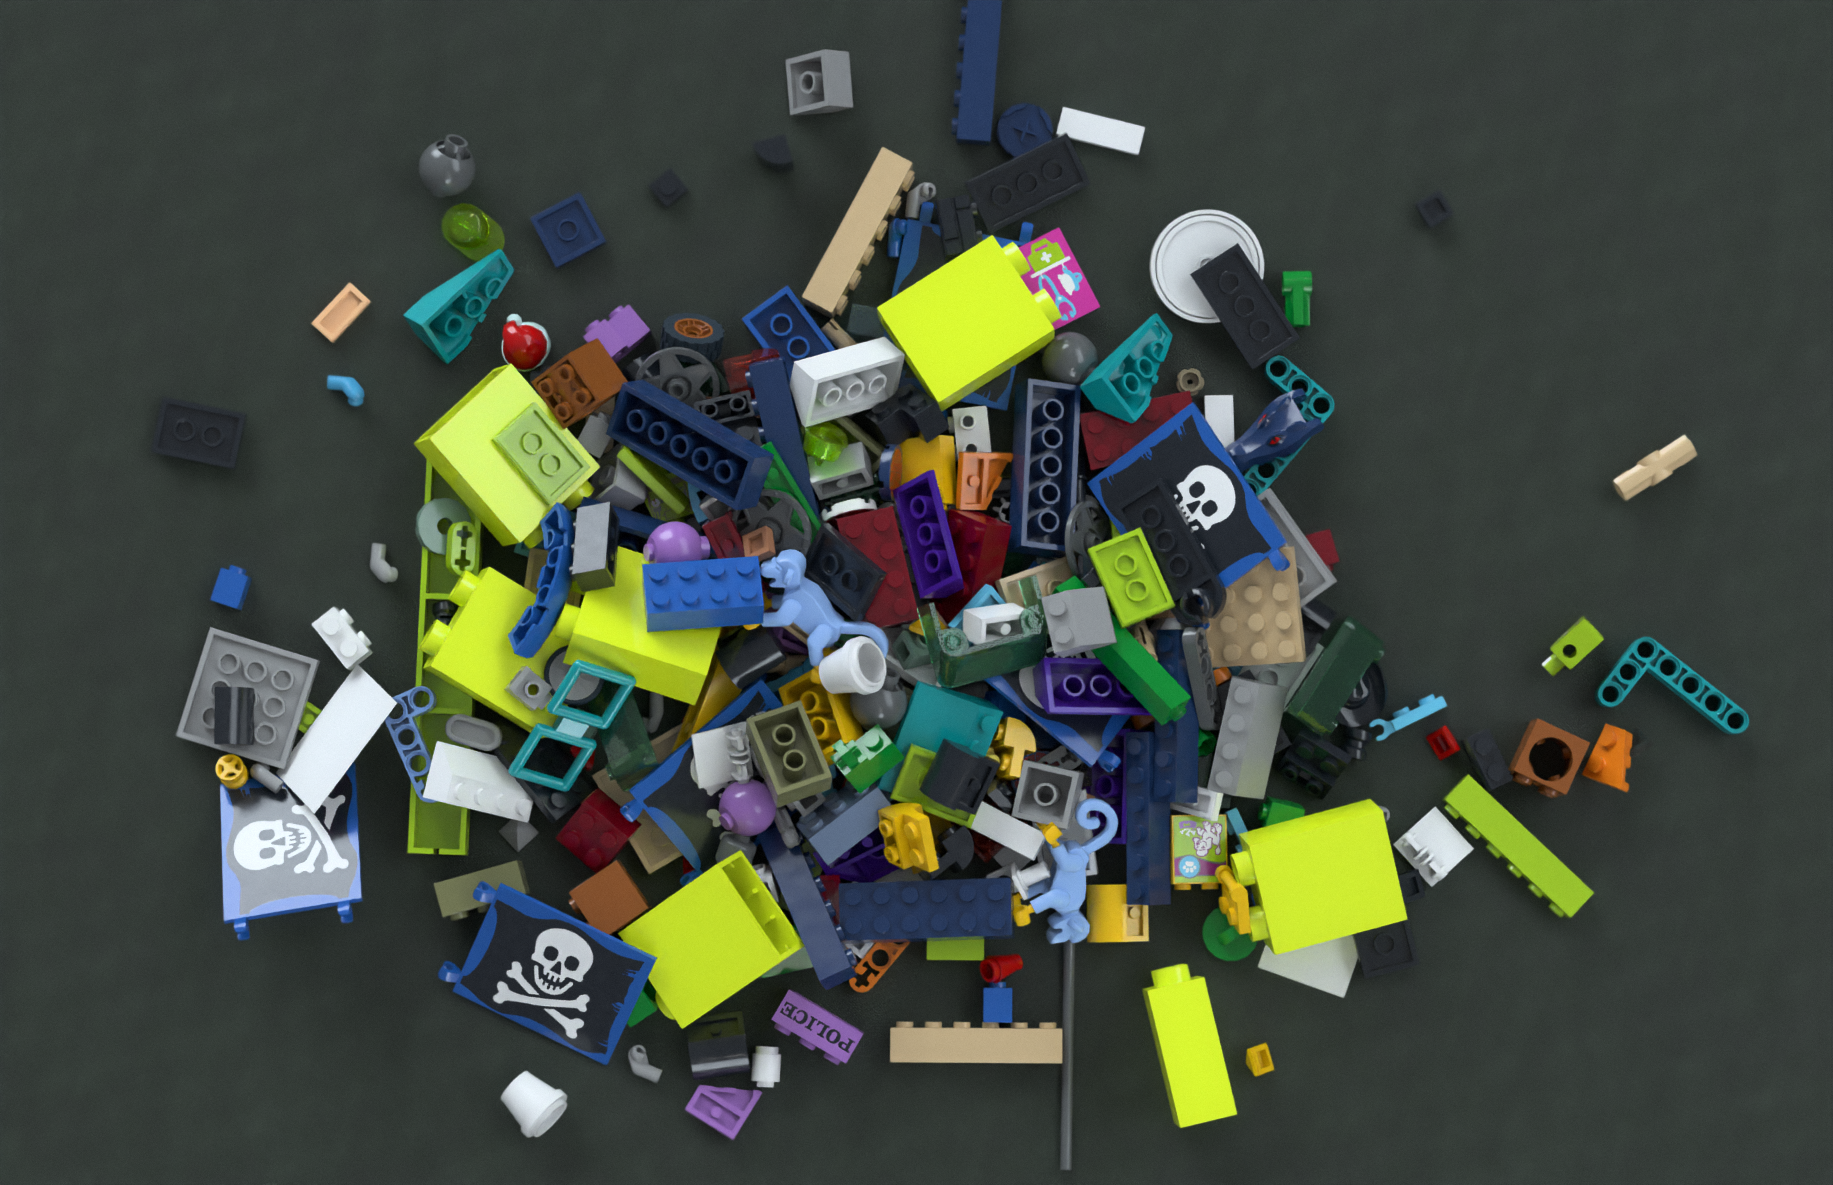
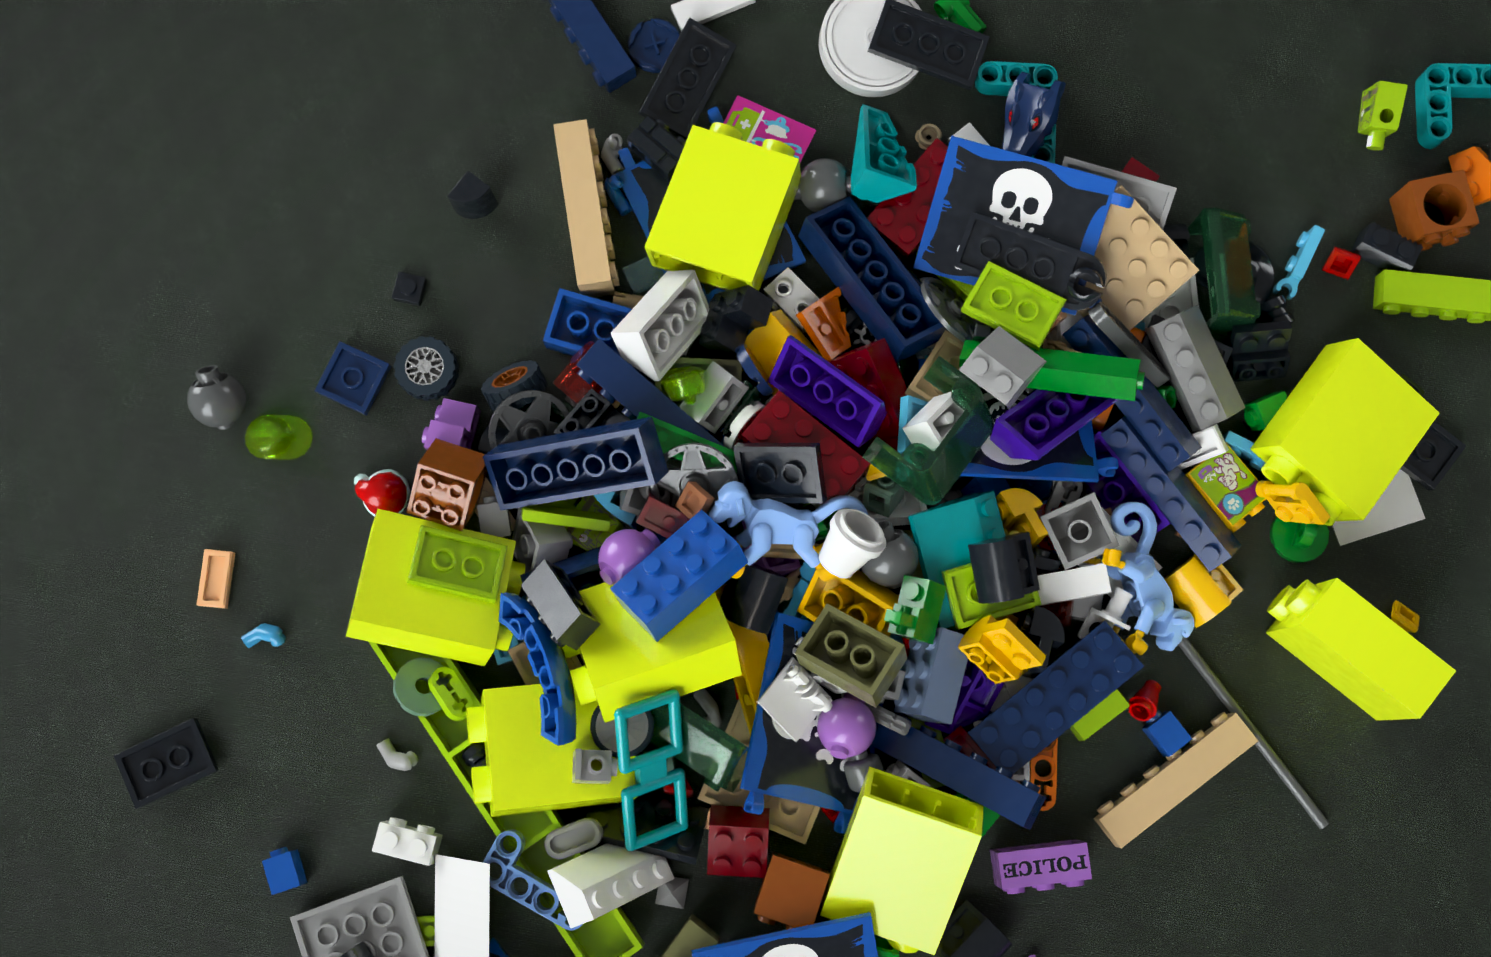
camera: 35 degrees left, 5 degrees down
(453, 309) = (305, 510): teal wedge -> none
(633, 266) = (426, 368): none -> black wheel
(766, 1066) = (1022, 930): white brick -> none
(819, 82) = (467, 121): light grey slope -> none
(1433, 846) = (1401, 346): white hinge -> none

